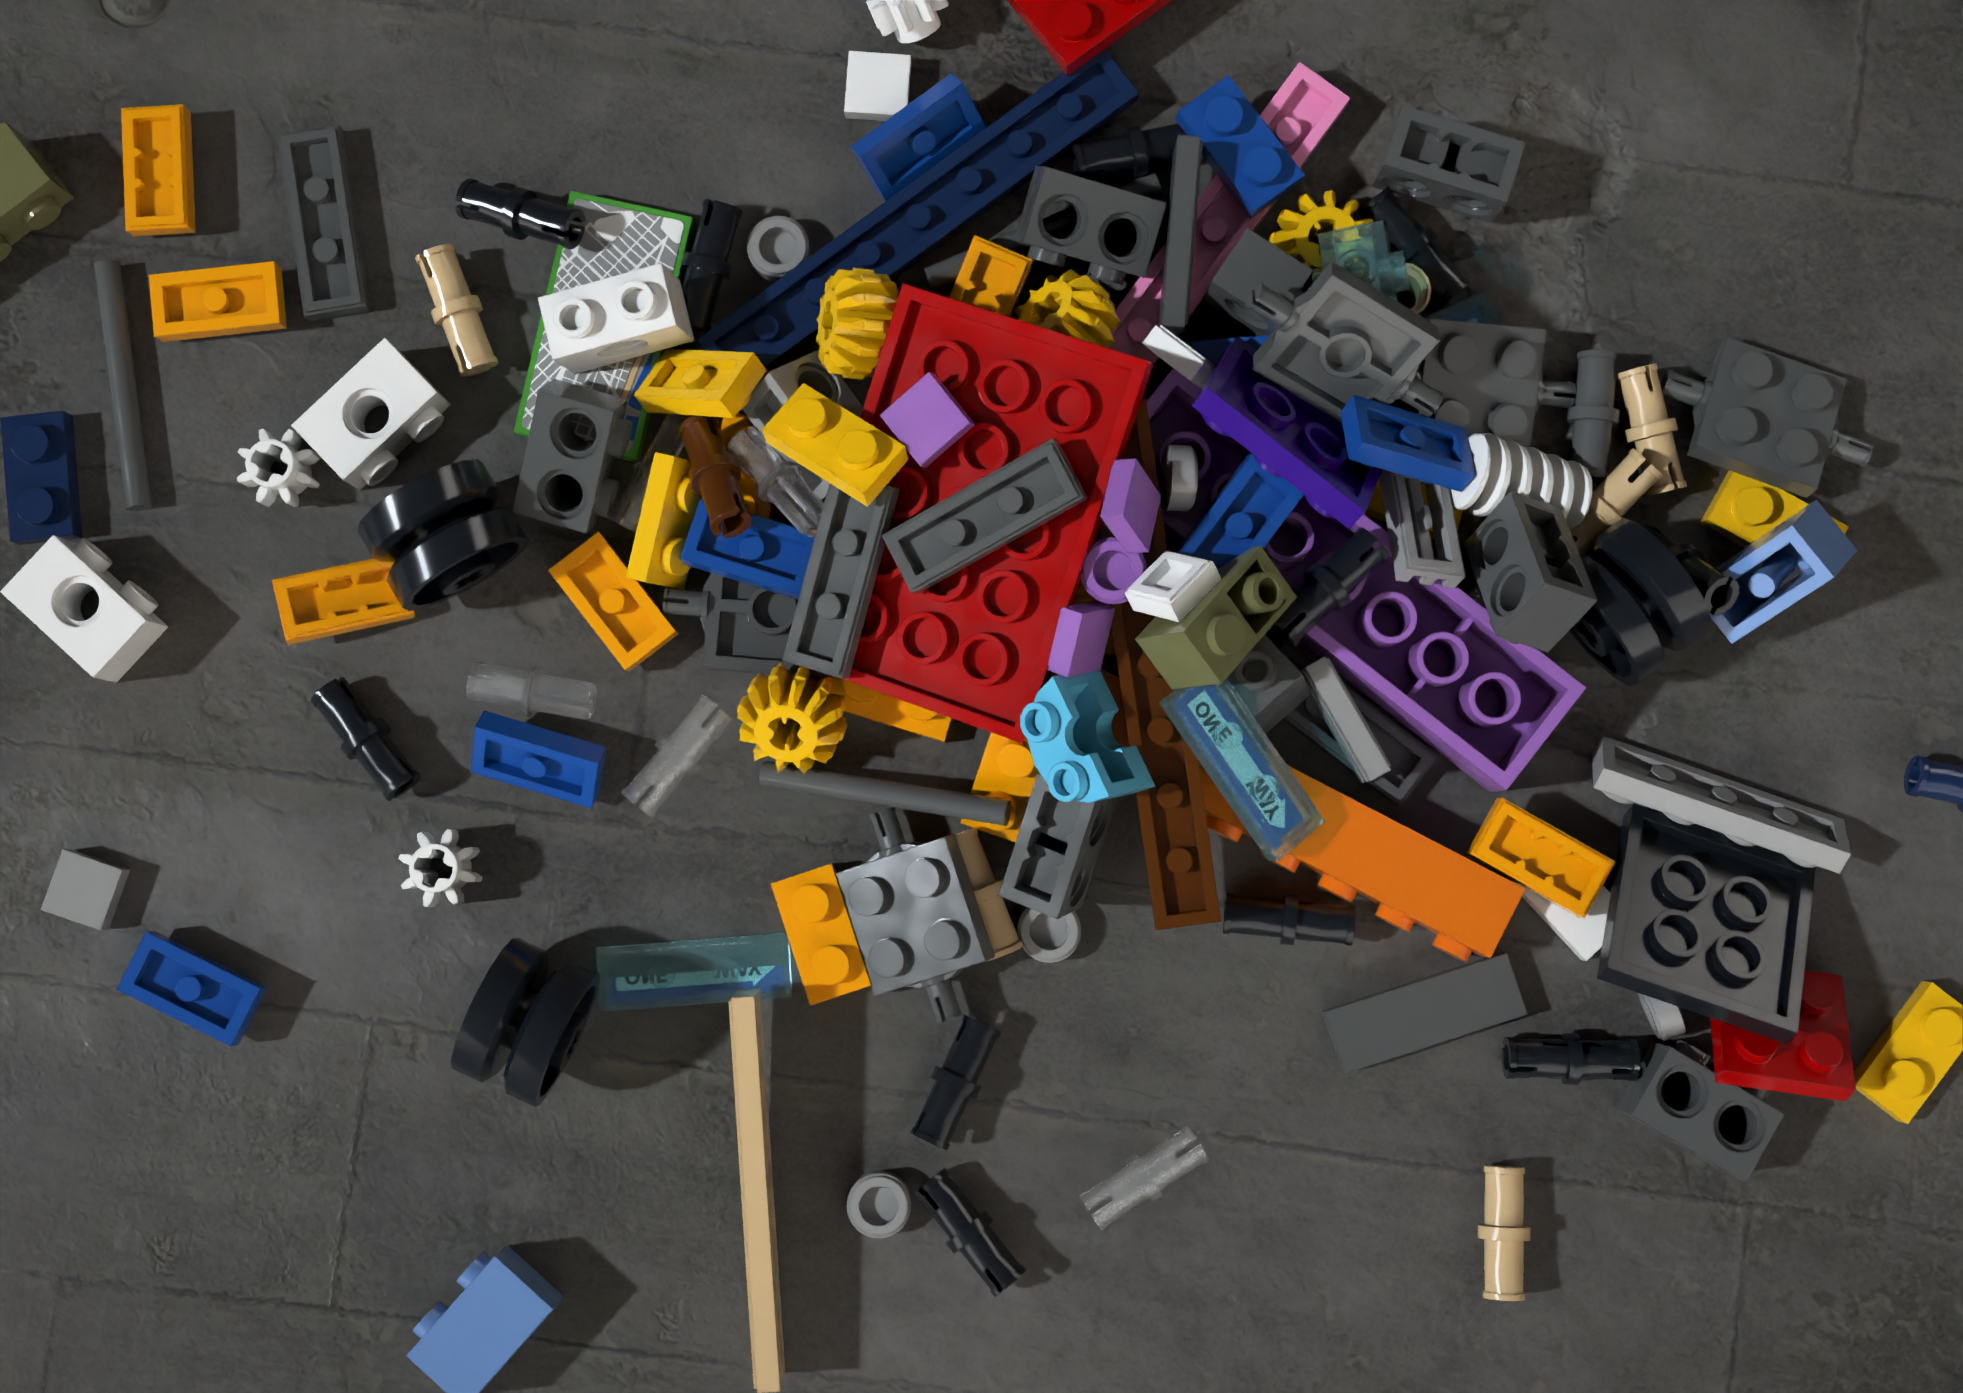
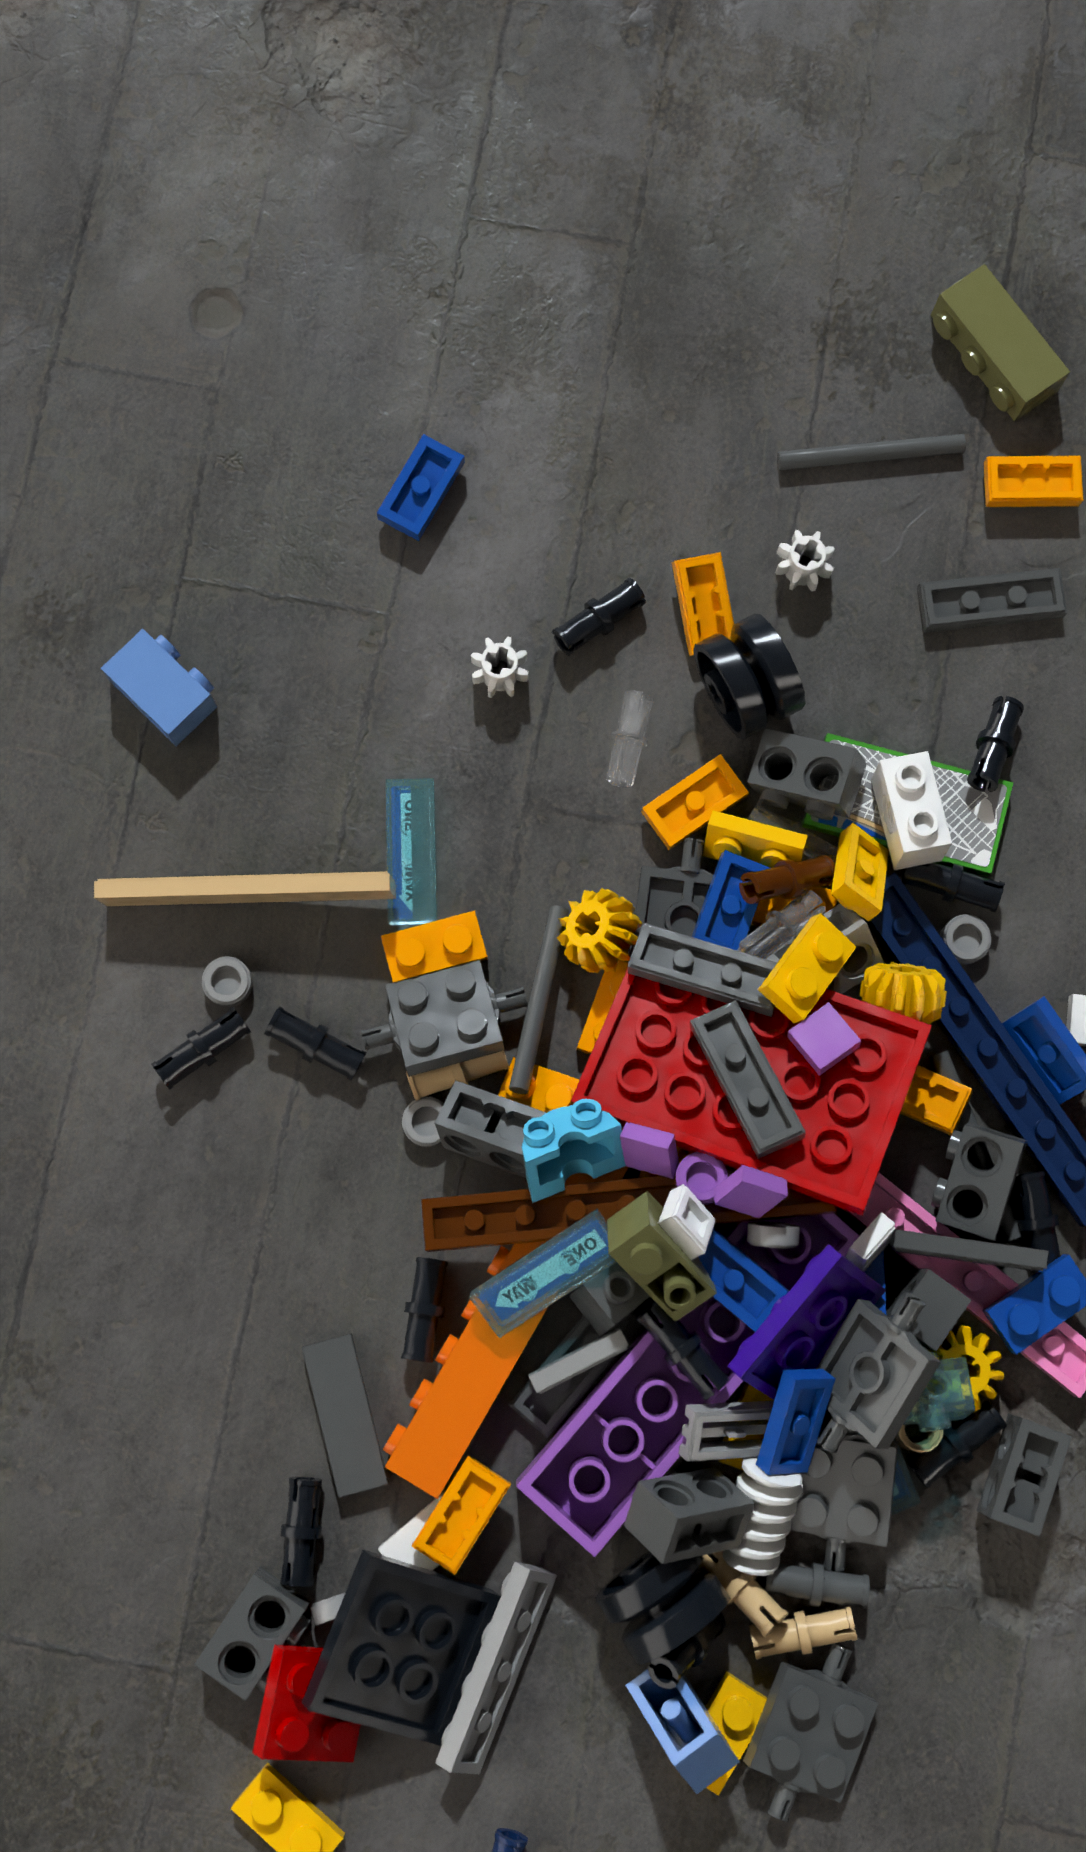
camera: 85 degrees right, 5 degrees down
(41, 477) = (803, 392): dark blue plate -> none
(51, 596) = (713, 396): white brick -> none
(85, 889) = (497, 415): light grey tile -> none
(217, 301) = (932, 521): light orange plate -> none
(337, 419) = (840, 604): white brick -> none
(456, 310) = (922, 694): tan pin -> none
(525, 1021) = (381, 722): black wheel -> none
(537, 759) = (577, 741): blue plate -> none
(677, 756) = (574, 844): clear pin -> none
(1072, 307) = (909, 1161): yellow gear -> none
(1143, 1177) = (232, 1184): clear pin -> none
(1504, 1232) = (169, 1467): tan pin -> none

